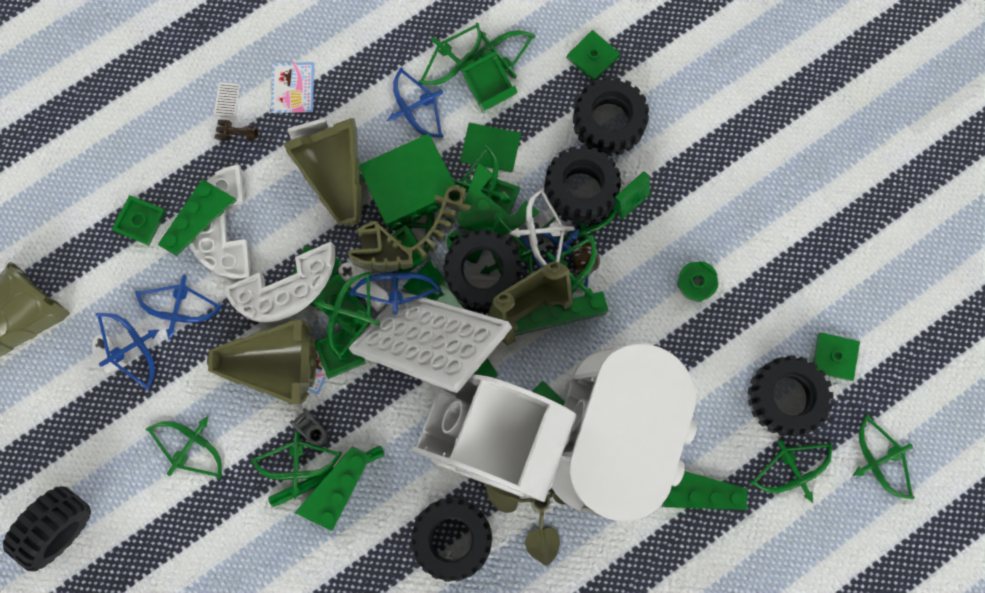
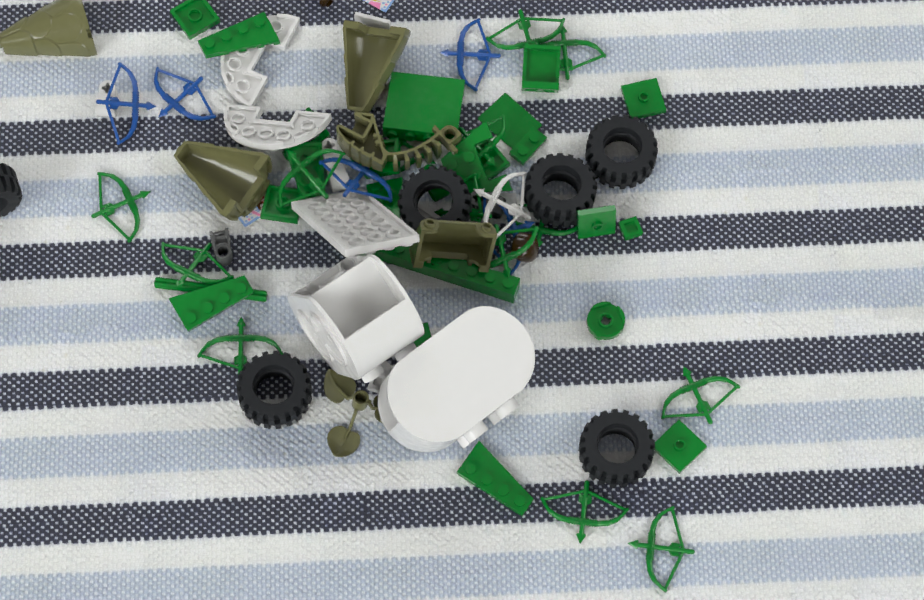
camera: 30 degrees right, 10 degrees down
(398, 525) = (240, 359): none -> green piece
(522, 160) = (528, 146): none -> green plate
(662, 182) = (630, 228): none -> green plate
(829, 306) = (702, 405): none -> green piece

